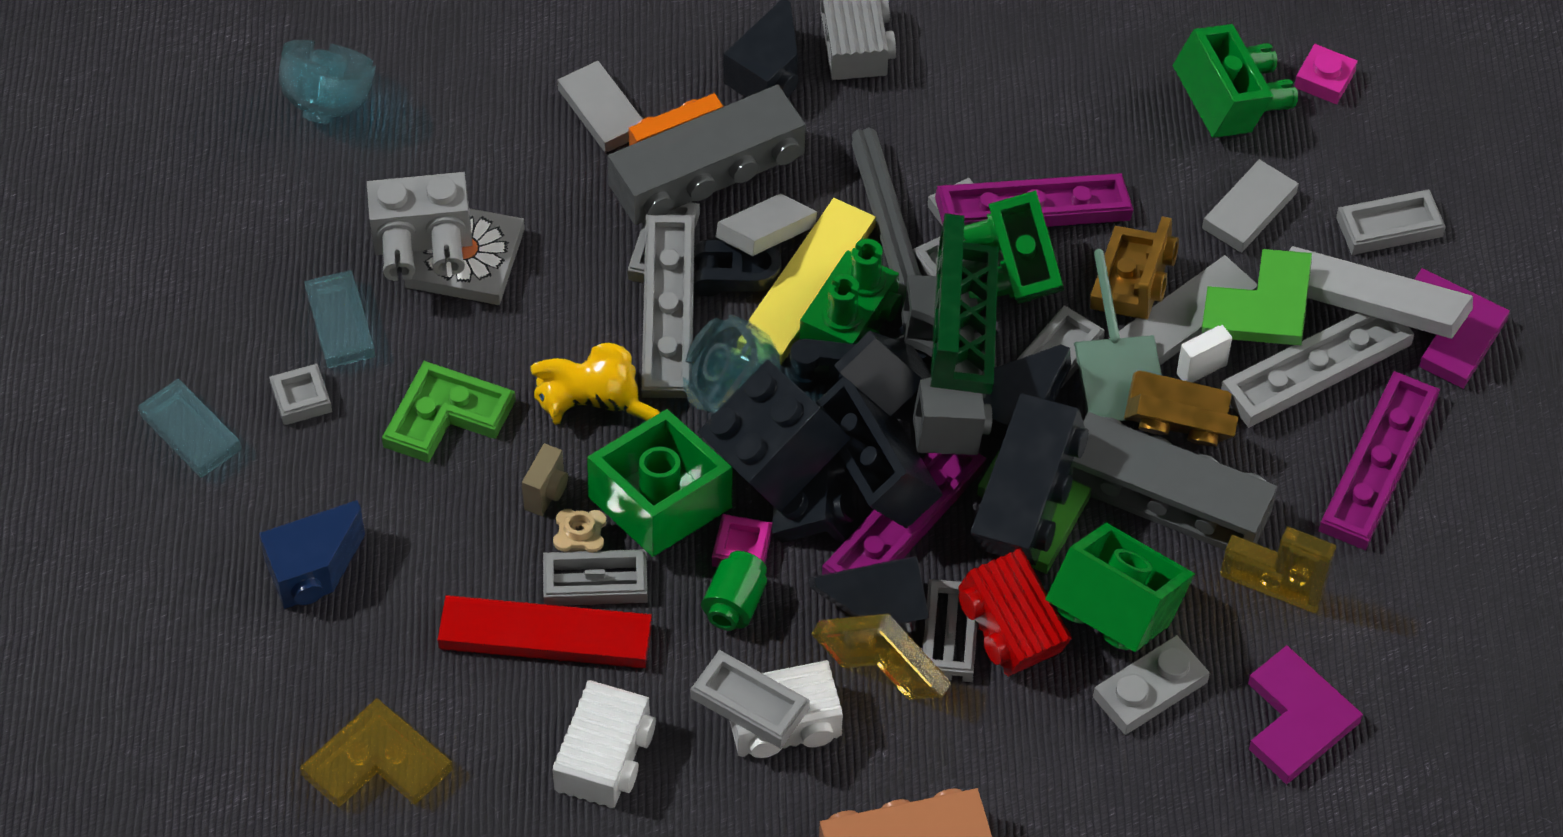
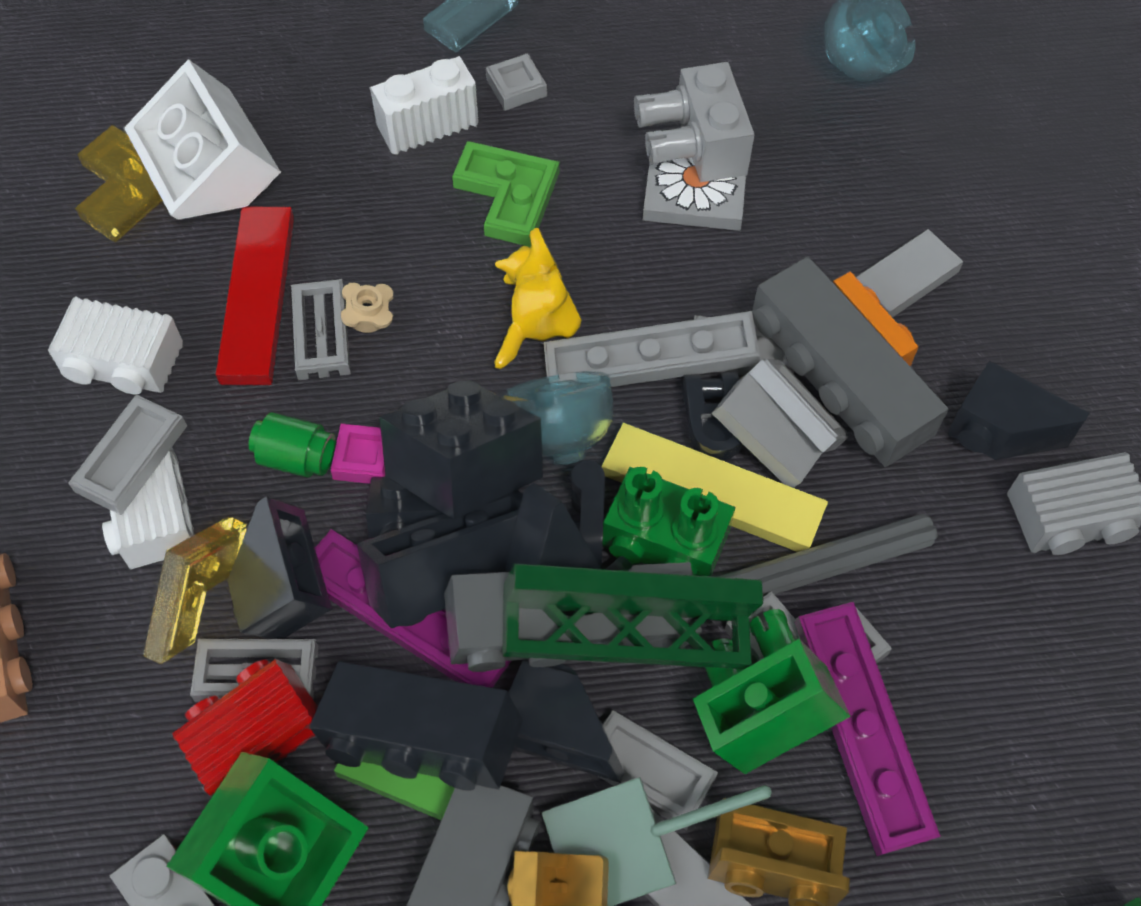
camera: 85 degrees right, 5 degrees up
(312, 553) = (329, 102): dark blue slope -> none
(334, 459) = (425, 104): none -> white brick
(339, 319) = (599, 97): clear light blue tile -> none
(365, 667) = (200, 146): none -> white slope
(544, 480) = (421, 266): dark tan plate -> none
(659, 482) = (408, 349): green brick -> none
(742, 198) = (799, 404): none -> light grey tile

